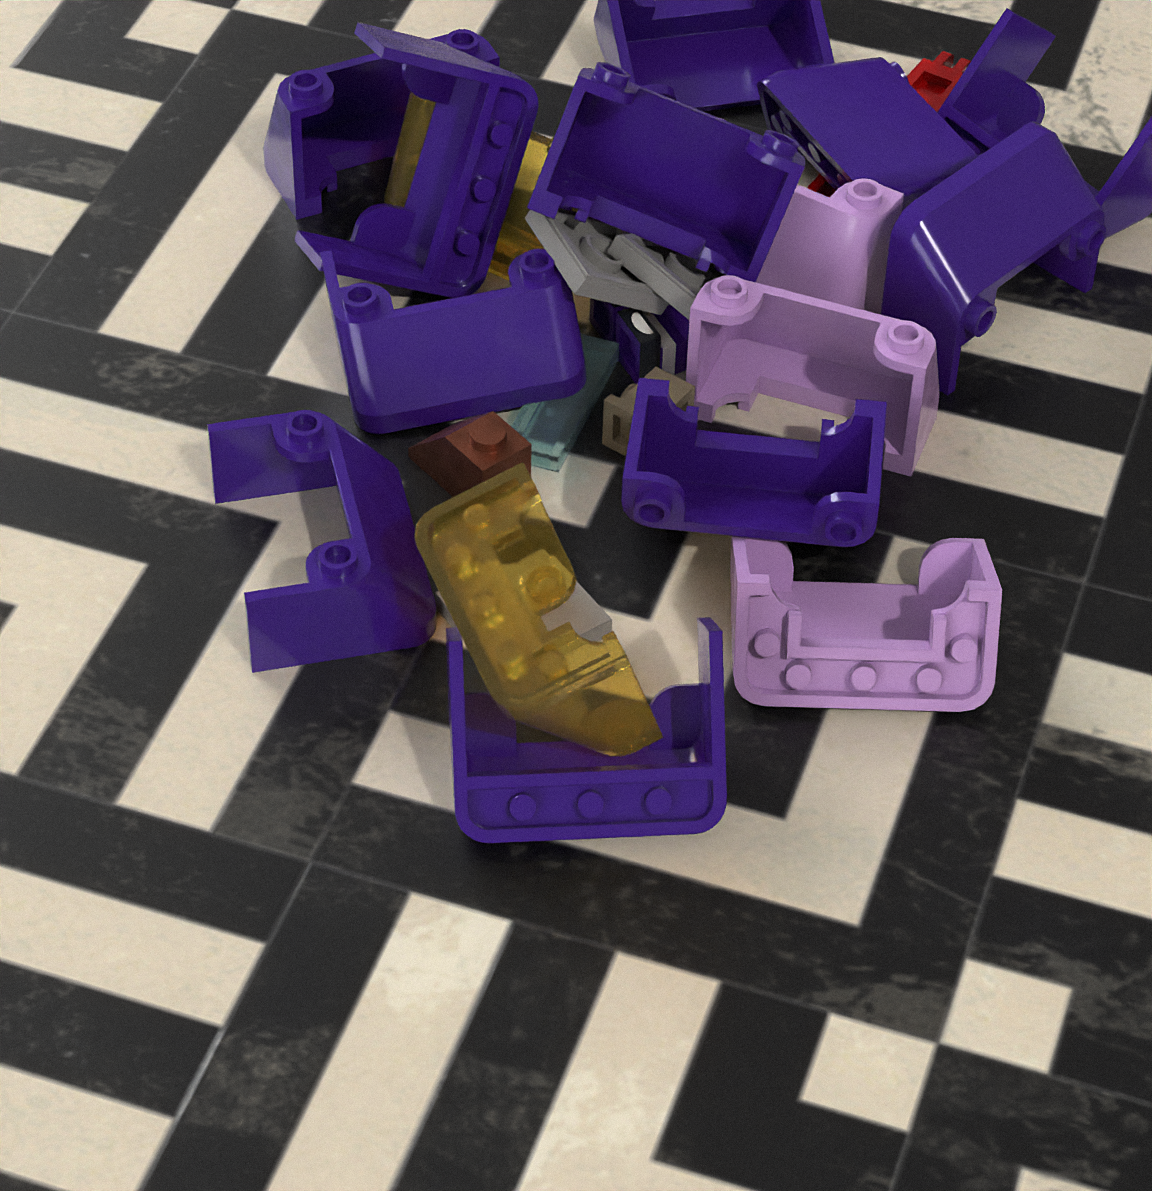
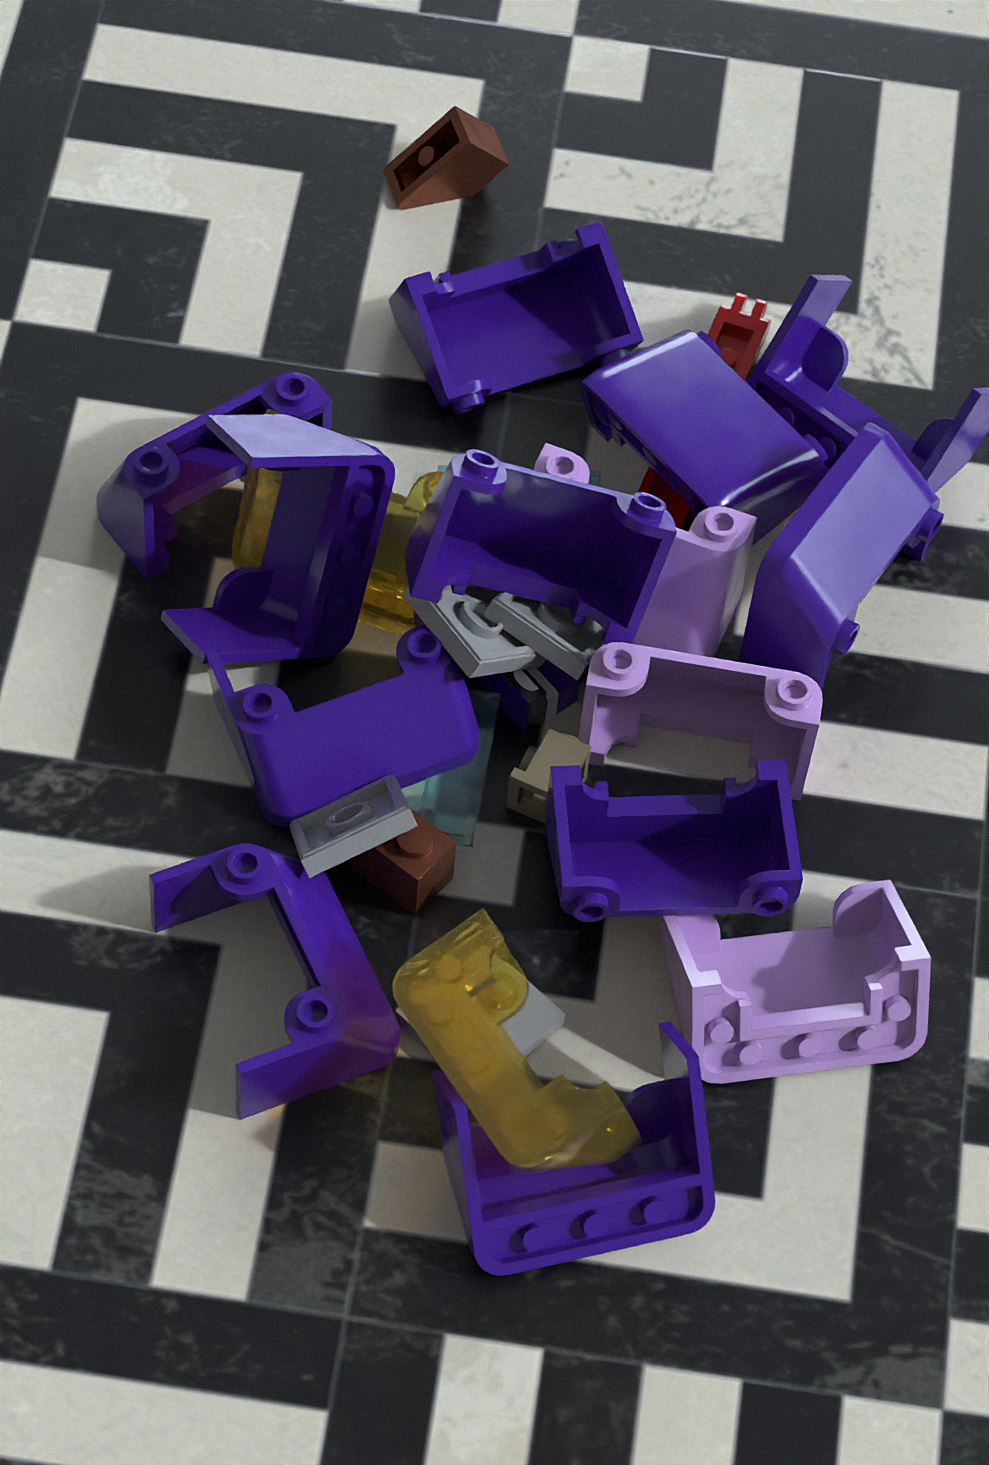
camera: 15 degrees left, 10 degrees up
(429, 419) = (351, 825): none -> light grey tile

